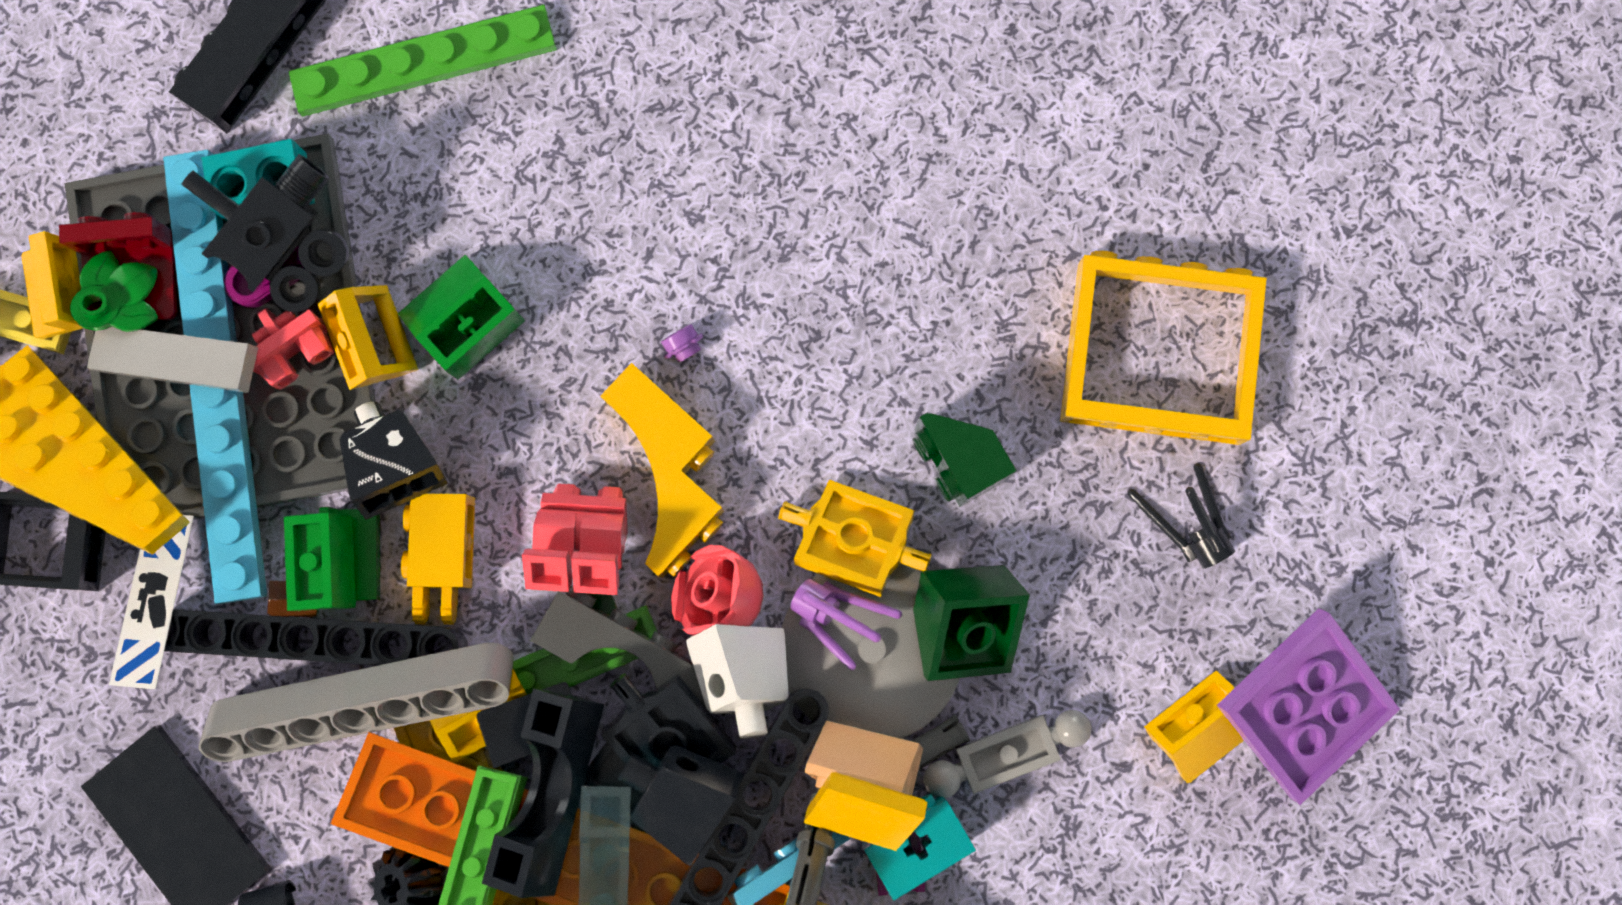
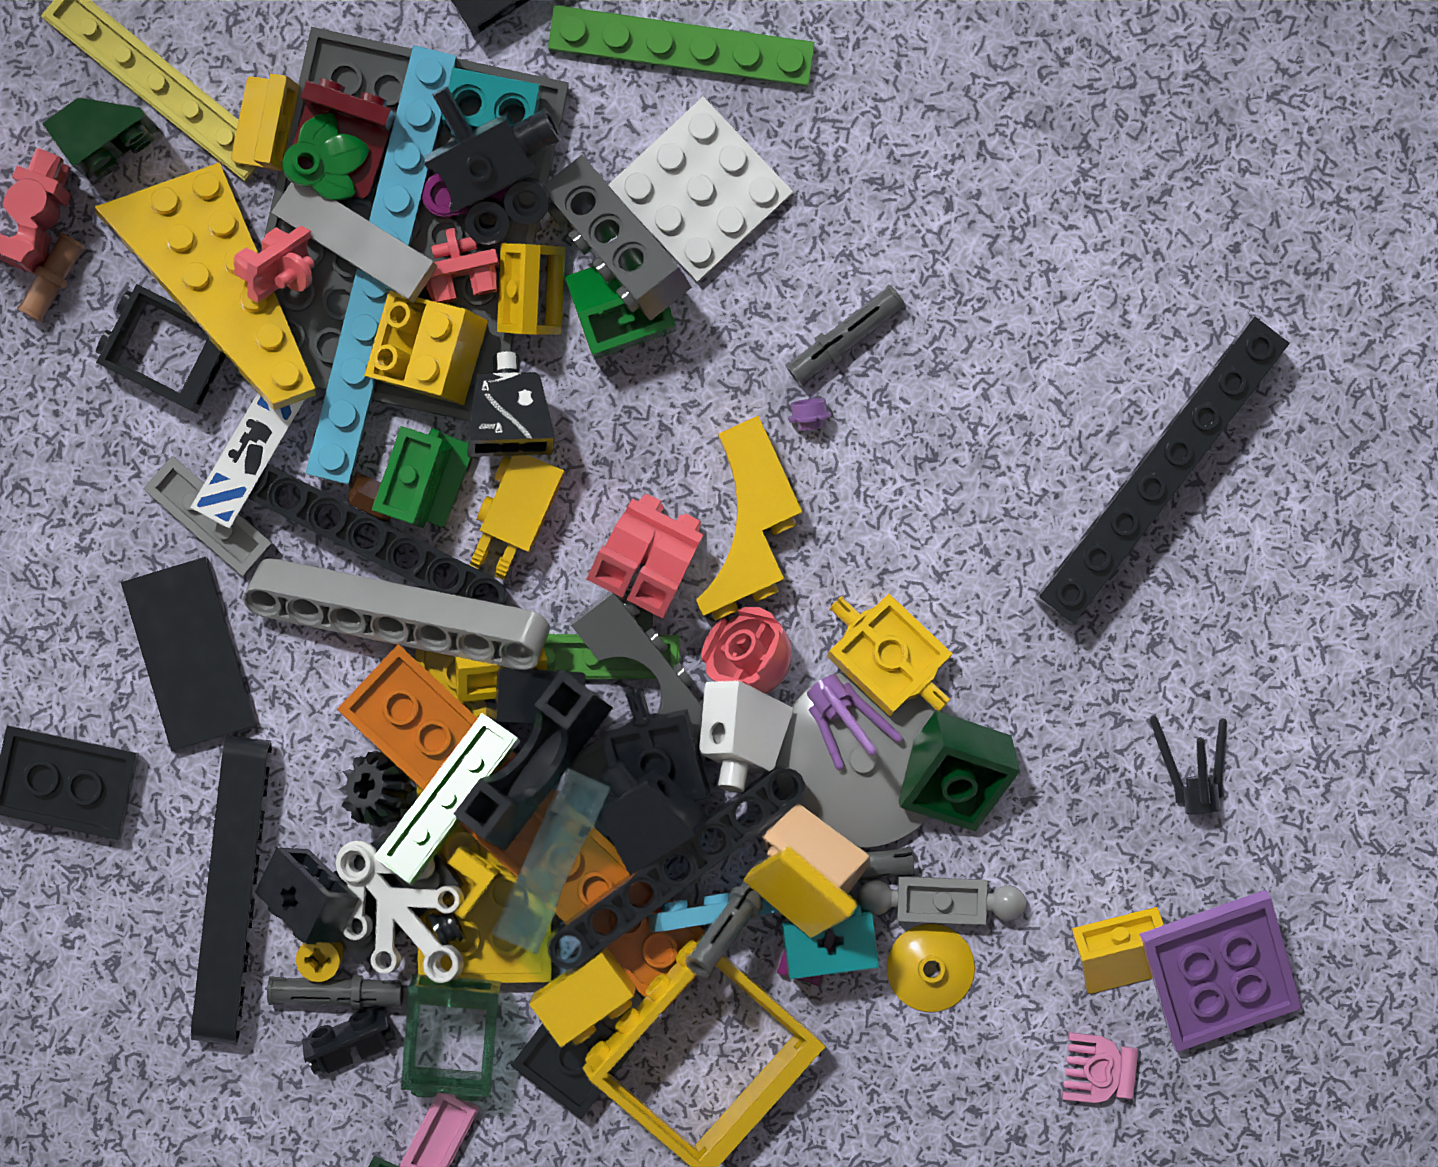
camera: 15 degrees right, 5 degrees up
(102, 412) = (280, 264): none -> coral hips
(176, 697) = (176, 490): none -> light grey plate
(284, 431) = (426, 347): none -> yellow slope
(424, 252) = (658, 278): none -> dark grey brick
(494, 182) = (700, 189): none -> white plate
(676, 273) = (845, 335): none -> dark grey pin
(965, 455) = (1018, 626): dark green slope -> none
(1001, 818) = (927, 944): none -> yellow dish
(1036, 255) = (1162, 471): none -> black brick
(1157, 421) = (1198, 664): yellow window -> none
(1239, 852) = (1105, 1070): none -> bright pink piece

